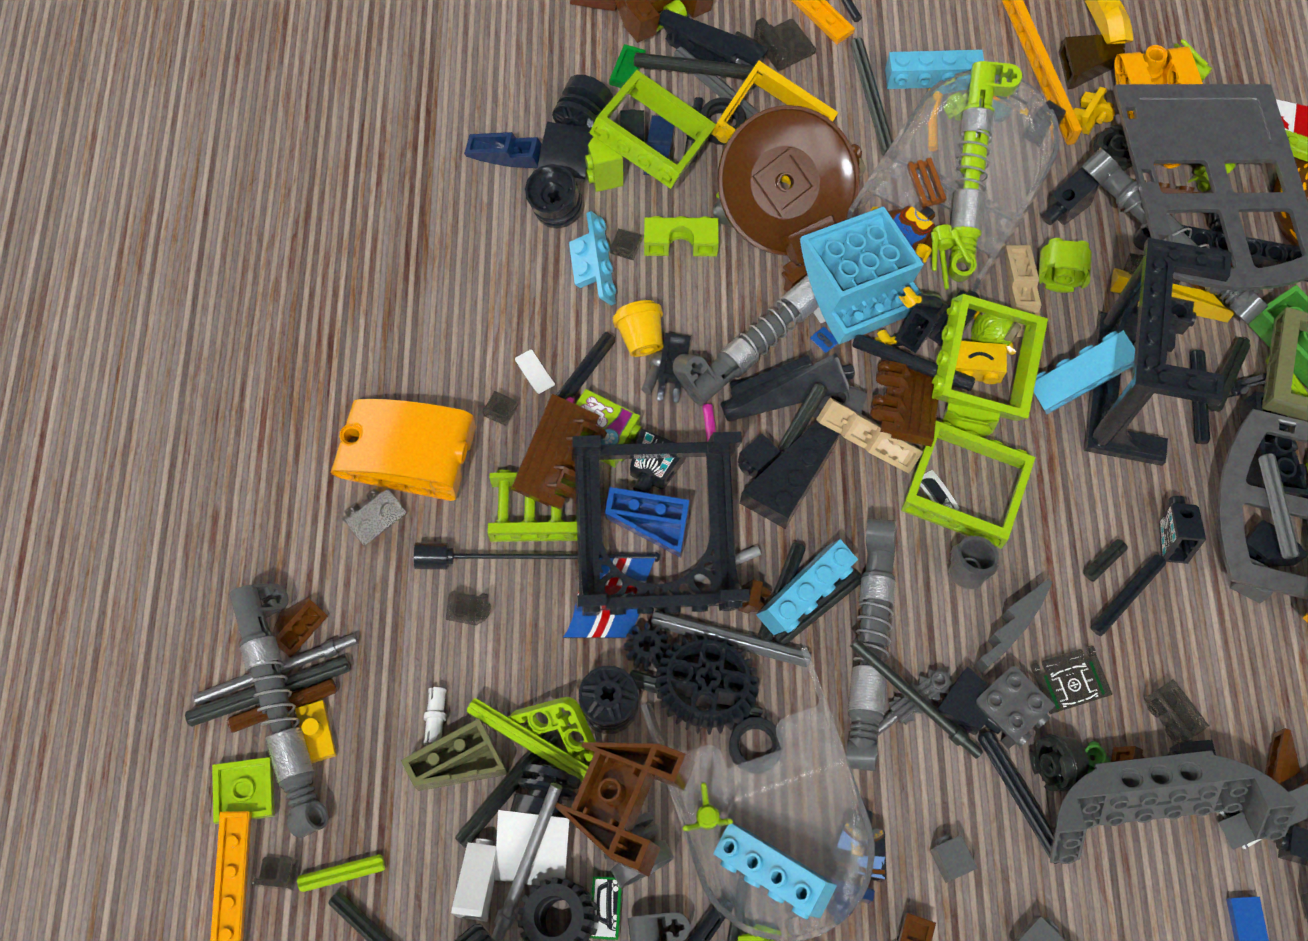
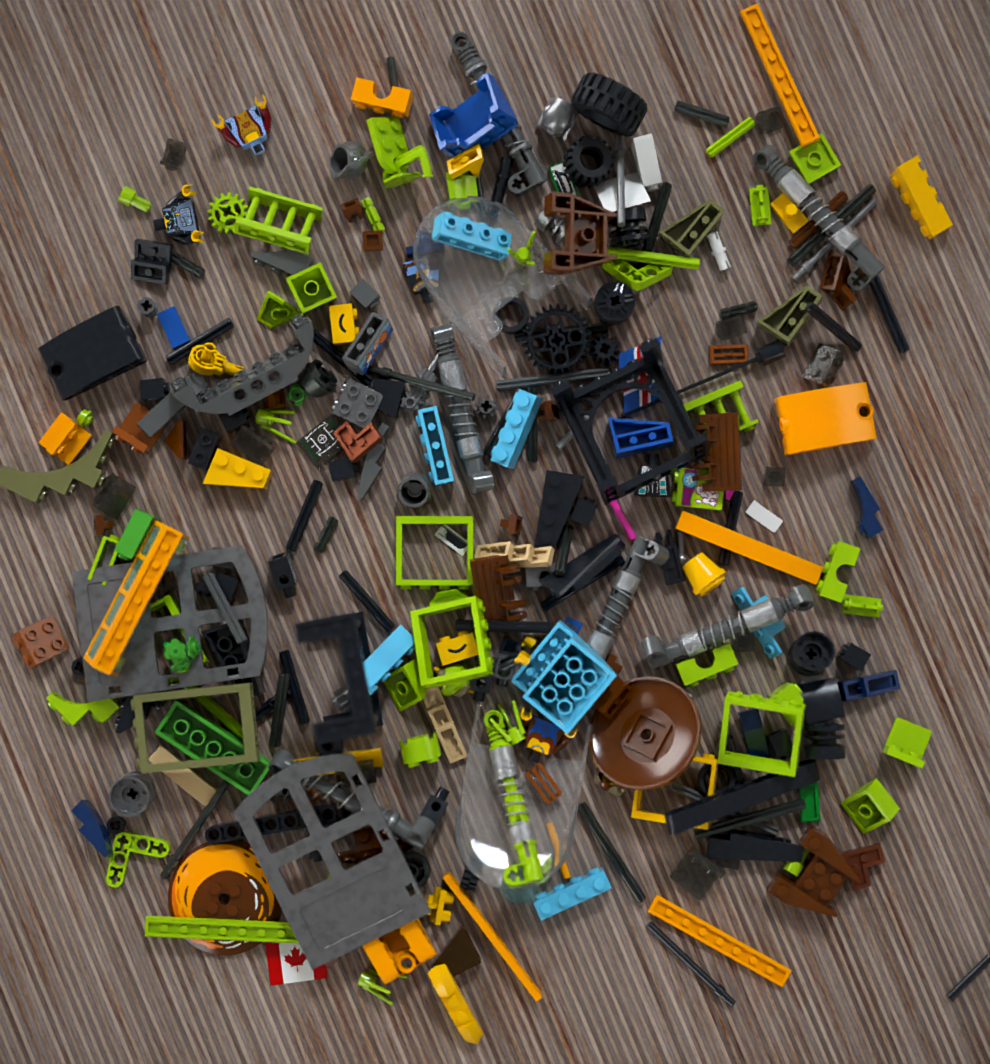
camera: 160 degrees right, 20 degrees up
(132, 675) = (921, 198): none -> yellow wedge
(258, 538) = (889, 315): none -> black axle
(301, 587) = (844, 297): none -> reddish brown tile
(336, 550) = (833, 326): none -> black axle
(349, 756) = (760, 205): none -> lime hinge
(381, 588) = (790, 317): none -> olive wedge
(408, 326) = (868, 522): none -> dark blue slope
(446, 629) = (738, 309): none -> pearl dark grey axle
(466, 290) = (830, 586): none -> lime arch
(468, 232) = (861, 606): none -> lime hinge
(492, 79) = (907, 742): none -> lime bracket
(504, 182) = (853, 656): none -> black brick
(507, 587) = (712, 355): none -> dark orange tile
(561, 36) = (870, 806): none -> lime slope
(573, 340) = (749, 547): none -> light orange tile
(605, 252) = (752, 618): none -> dark grey piece
(722, 75) = (739, 797): none -> black beam
(829, 631) = (489, 411): none -> dark grey gear
(856, 477) = (513, 524): none -> reddish brown tile
(923, 609) = (436, 447): none -> medium azure brick
(974, 782) = (367, 343): none -> dark grey brick
(997, 828) = (343, 324): none -> yellow brick
(1032, 894) = (311, 288): none -> lime slope
(1034, 651) = (355, 443): none -> copper plate
(1058, 343) = (405, 685): none -> lime slope
(1059, 631) = (342, 469): none -> black brick
(1075, 461) = (367, 601): none -> black axle
(1089, 889) = (276, 311): none -> lime slope
(1146, 738) = (266, 418): none -> lime plant
(1209, 851) = (210, 361): none -> yellow pin
(1210, 683) = (236, 472): none -> yellow wedge
(1215, 891) = (205, 337): none -> black axle
(1247, 731) = (205, 449): none -> black brick

